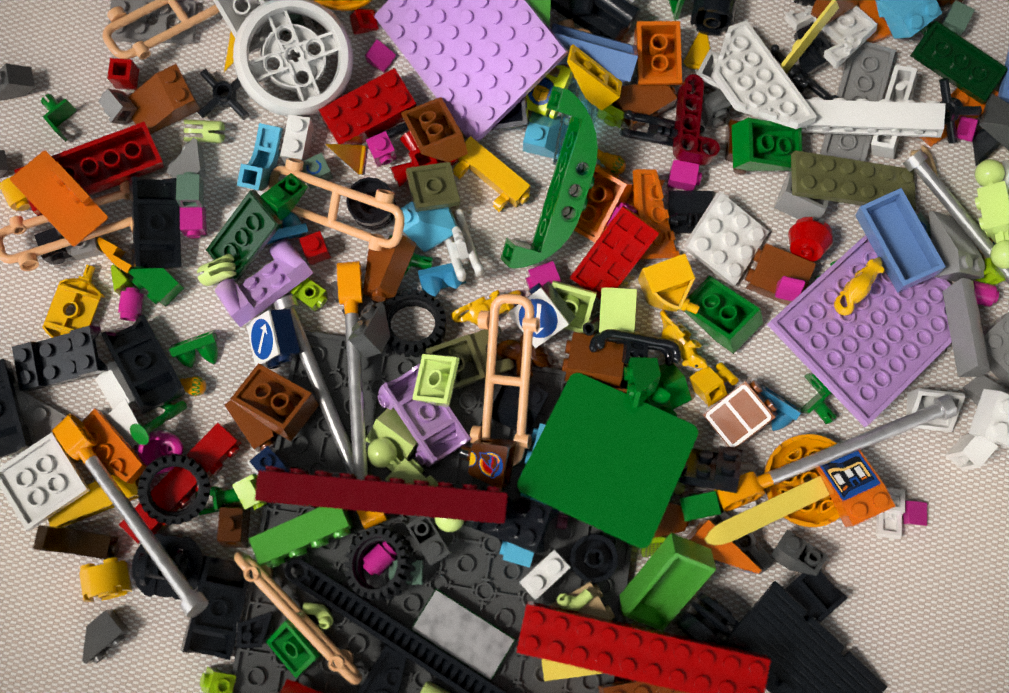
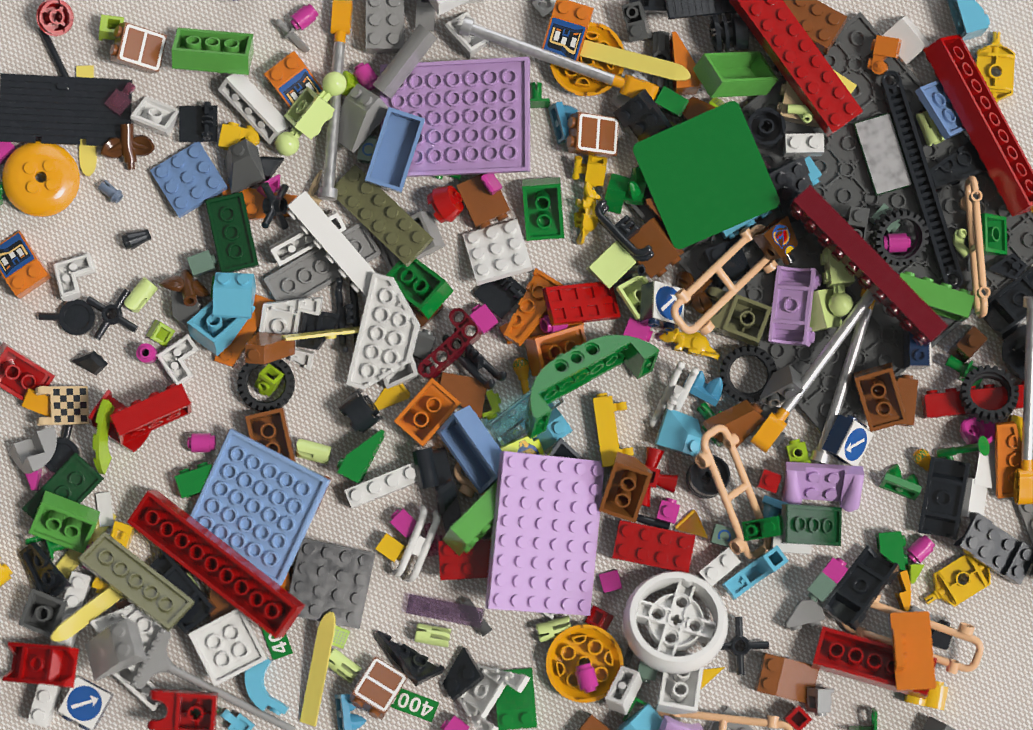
camera: 145 degrees left, 5 degrees up
(207, 131) = (775, 631): yellowish green arm -> none
(217, 270) = (847, 522): yellowish green arm -> none
(246, 490) = (942, 353): brick -> none
(432, 186) = (660, 448): olive plate -> none
(436, 379) = (770, 315): yellowish green slope -> none
(595, 82) = (494, 424): yellow slope -> none
(642, 378) = (637, 207): green slope -> none
(668, 284) = (563, 253): yellow piece -> none
(859, 286) = (448, 144): yellow animal -> none

